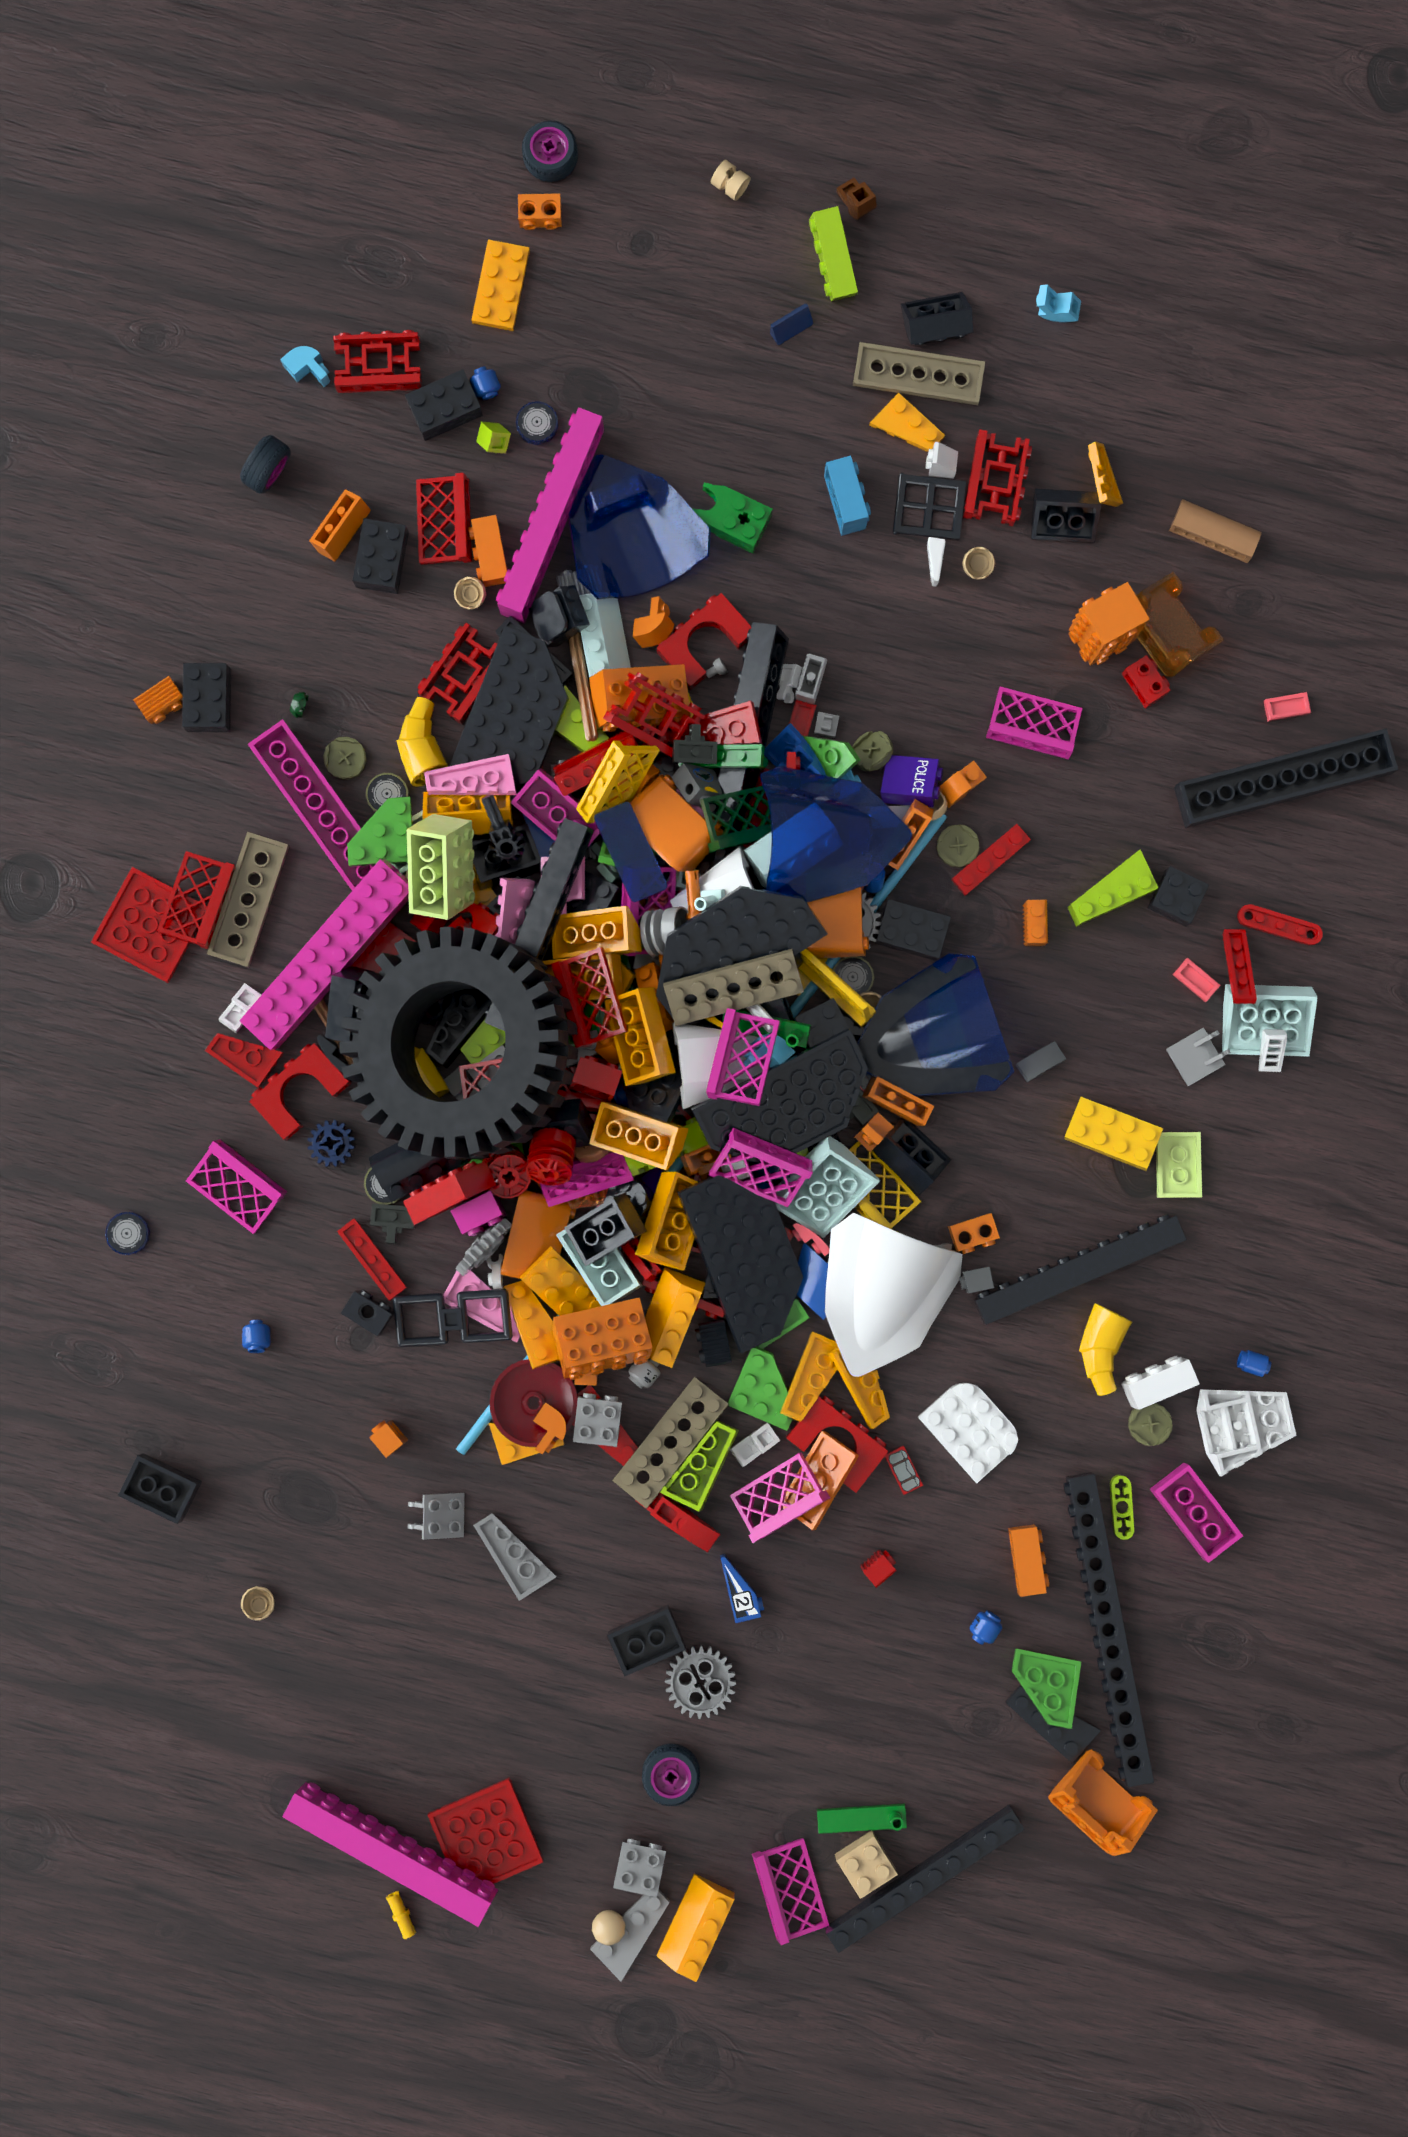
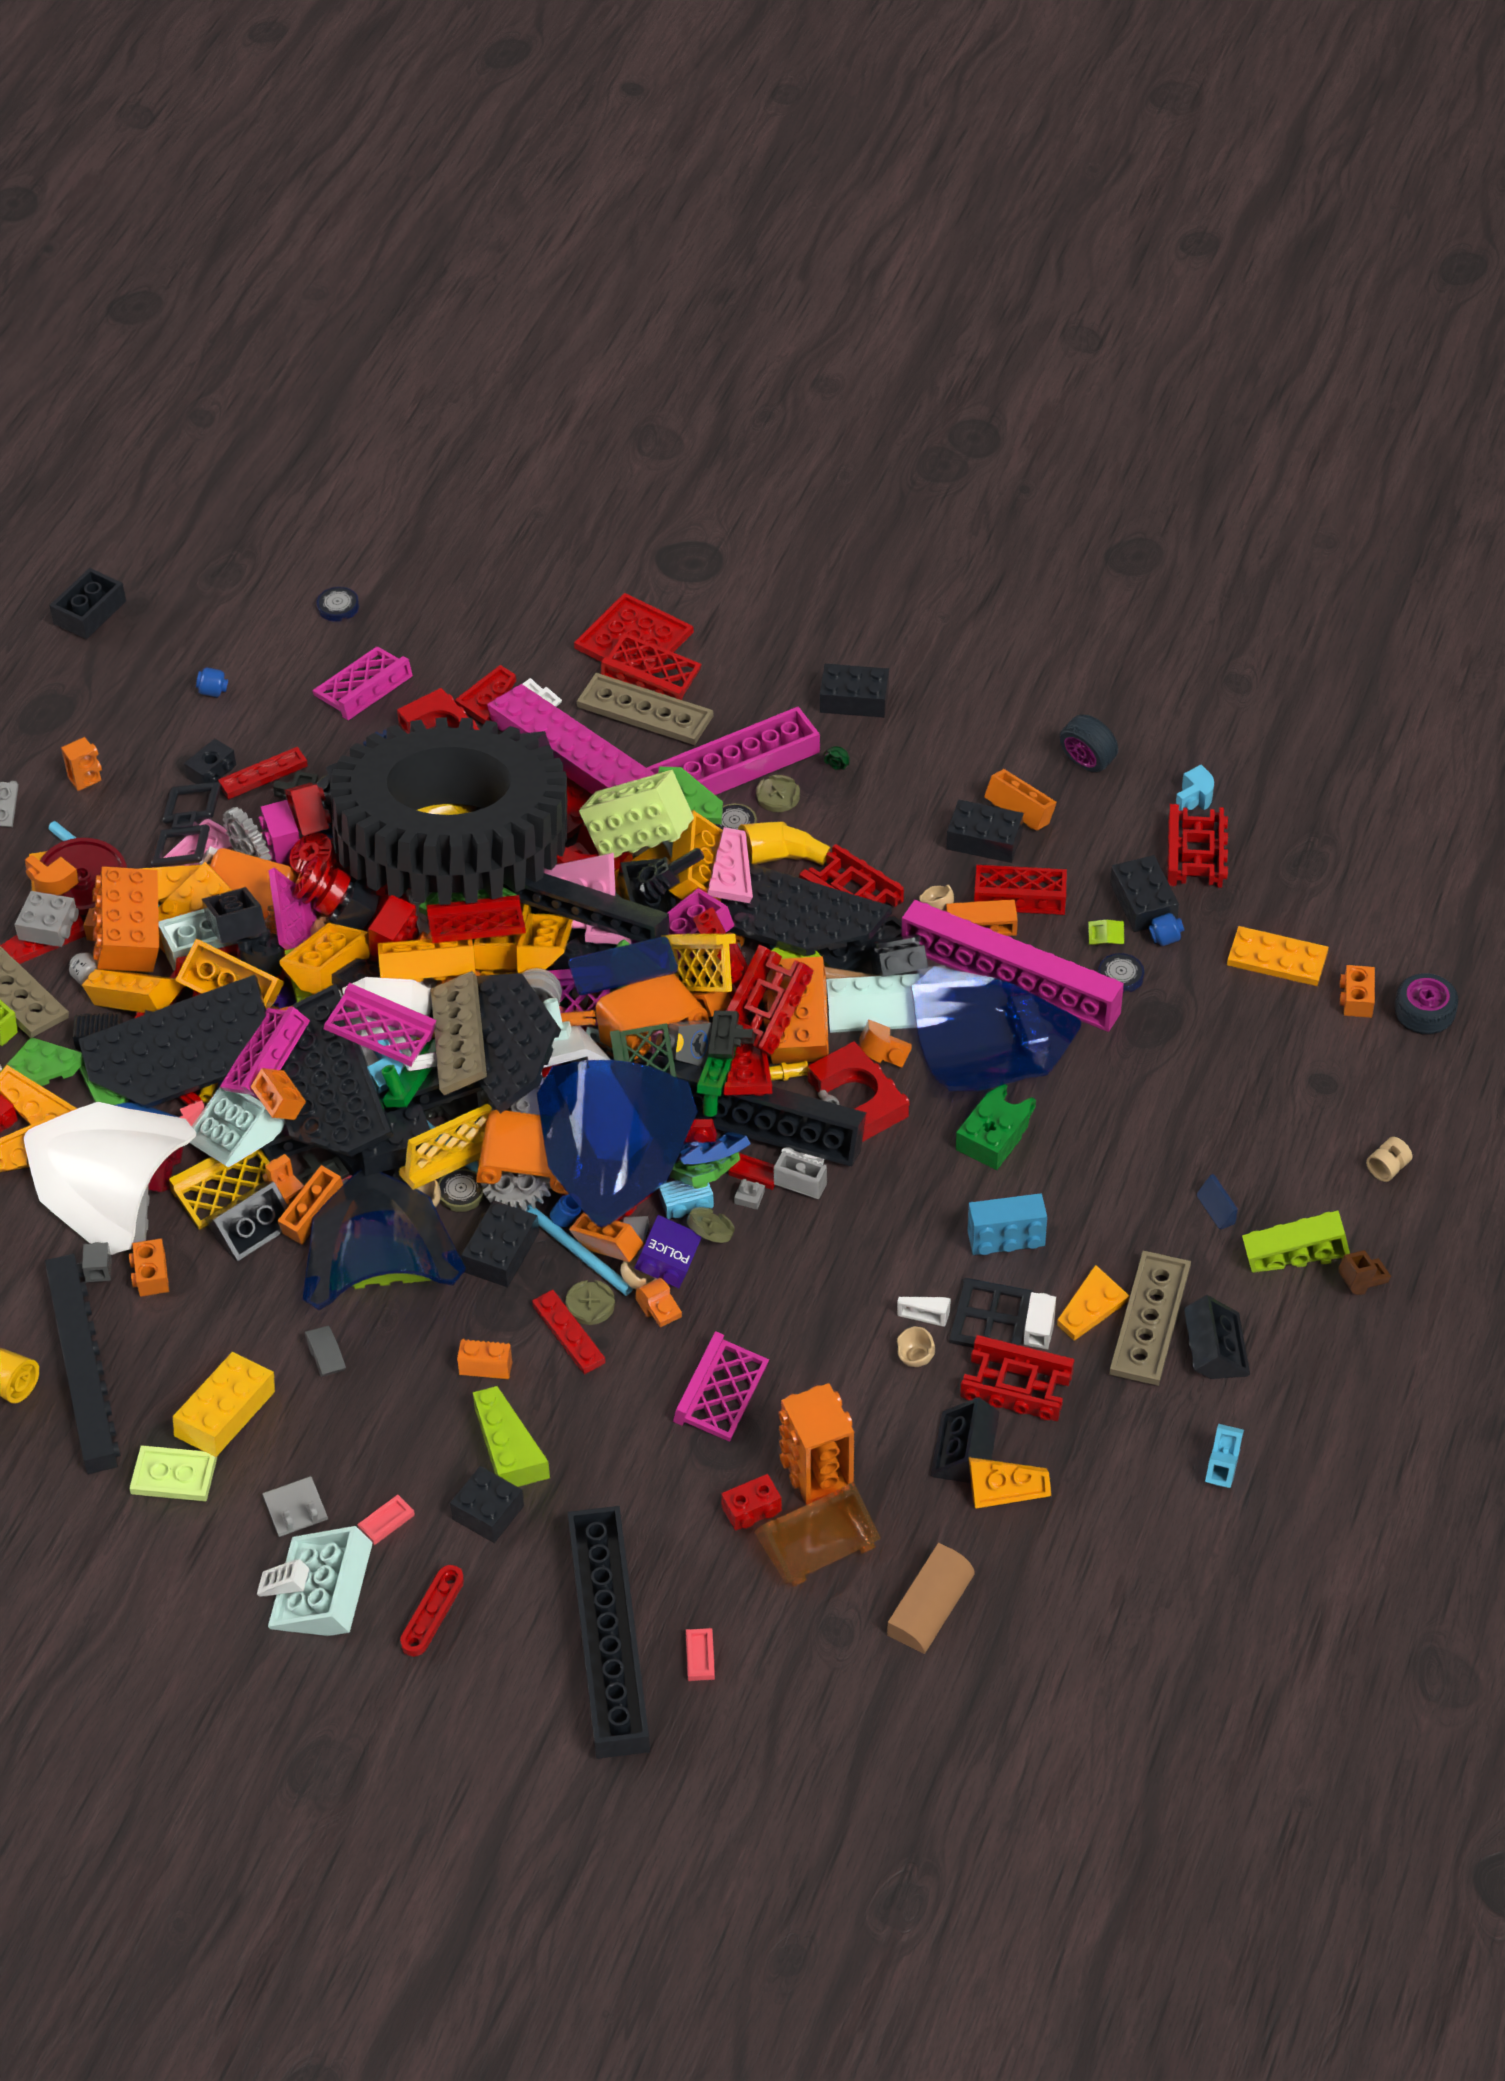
camera: 100 degrees right, 35 degrees down
(160, 700) = (855, 652): orange brick -> none
(818, 1140) = (278, 1094): none -> orange brick
(1239, 966) = (387, 1545): red plate -> none

